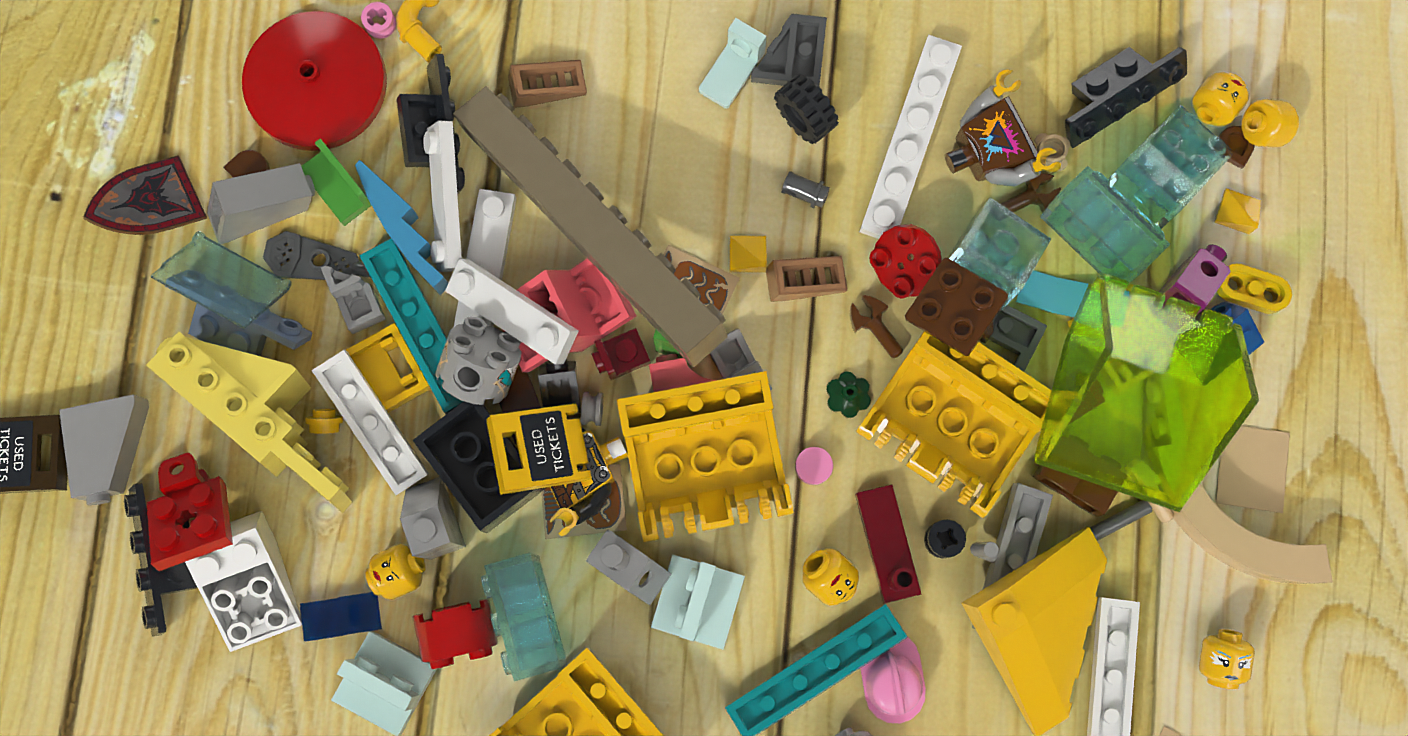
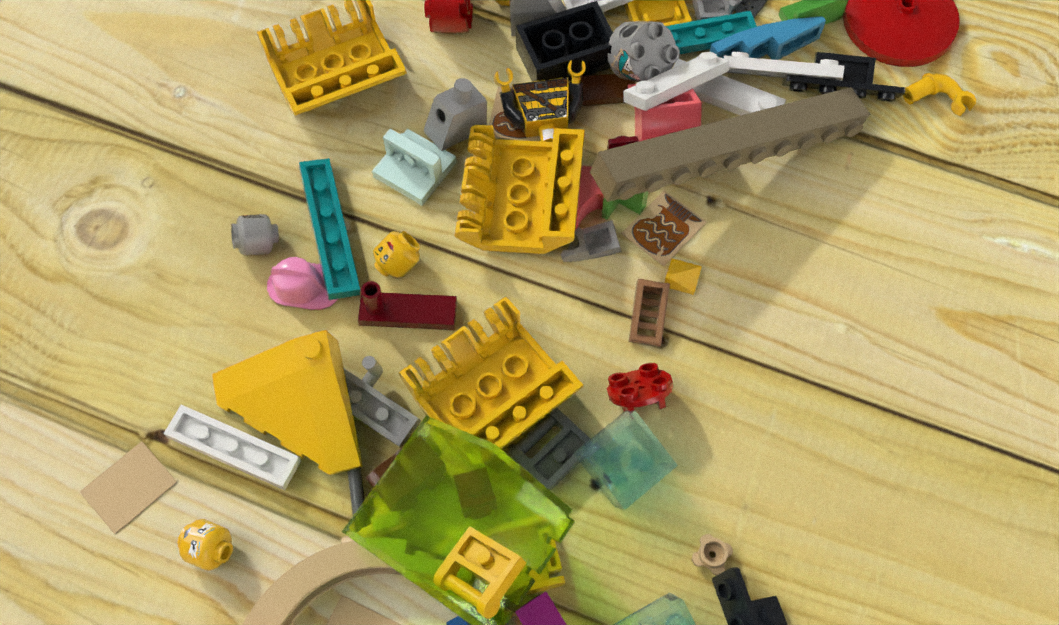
camera: 105 degrees right, 15 degrees down
(381, 10) = (945, 59): bright pink bush -> none
(524, 616) = (444, 44): clear light blue brick -> none
(547, 94) = (868, 144): medium nougat slope -> none
(547, 448) = (563, 75): container -> none
(559, 384) = (610, 112): black bracket -> none
(592, 408) = (591, 127): light grey bush -> none
(734, 64) = (852, 306): light aqua bracket -> none
(794, 52) = (855, 359): dark grey wing -> none
(805, 190) = (721, 339): dark grey pin -> none
(806, 109) = (798, 343): black tyre -> none
(814, 466) = (489, 274): bright pink tile -> none
(848, 404) = (540, 324): dark green plant -> none
(875, 325) = (595, 354): reddish brown bar -> none
(911, 136) = (758, 437): white plate -> none
(935, 542) = (395, 358): black wheel -> none
(957, 307) = (582, 400): reddish brown bracket -> none
(996, 141) = (735, 501): torso -> none
(1031, 197) = (673, 521): reddish brown bar -> none
(1053, 294) = (585, 505): medium azure sticker -> none
(1104, 227) = (622, 563): clear light blue brick -> none
(1169, 348) = (485, 560): none -> yellow plate

